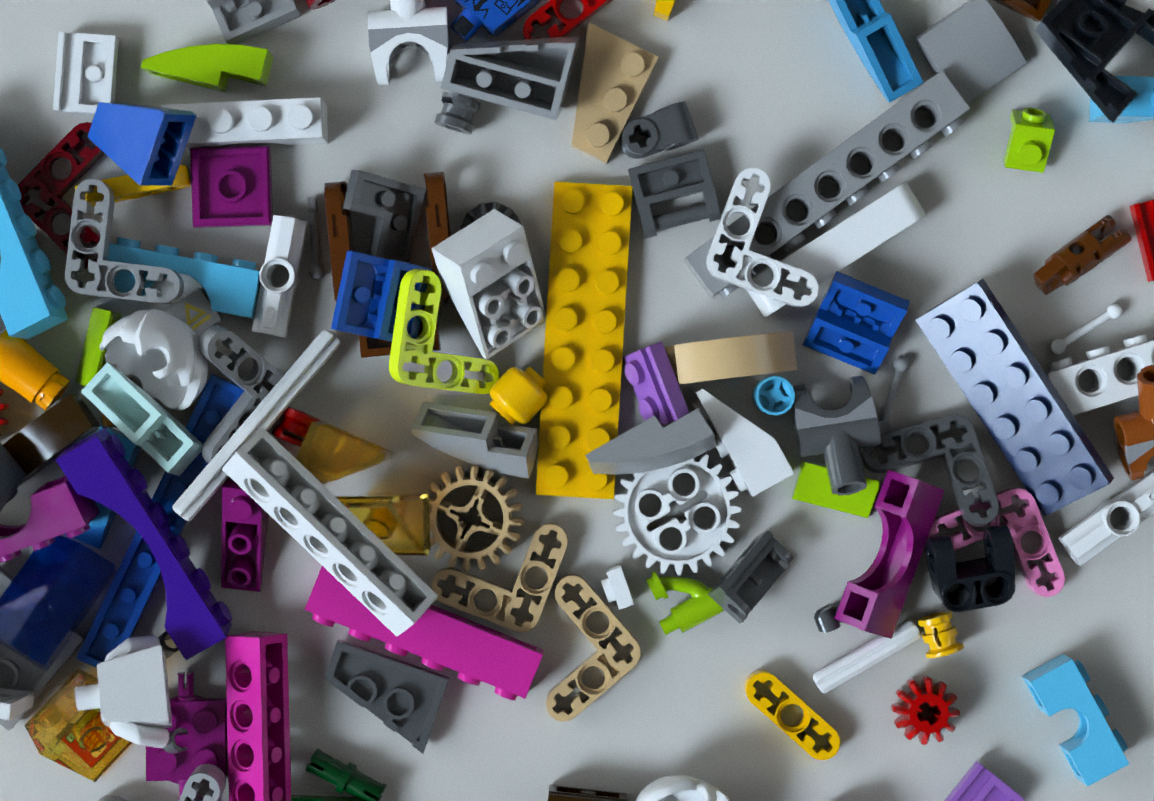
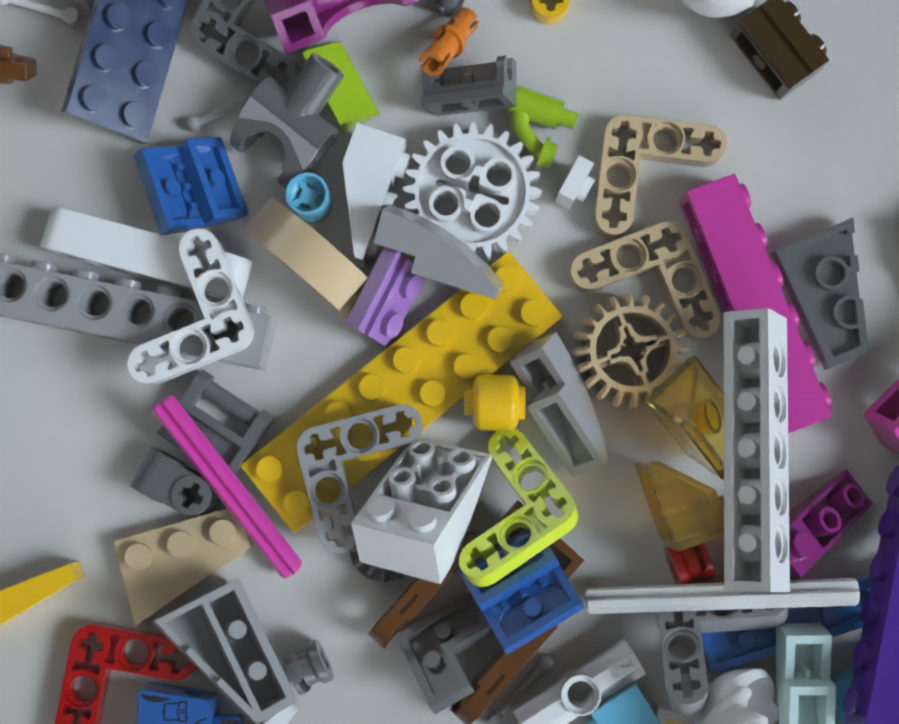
camera: 135 degrees left, 5 degrees down
(573, 247) = (332, 465): none -> light grey beam
(624, 165) = (227, 486): none -> dark pink axle
(795, 589) = (448, 41): none -> orange pin

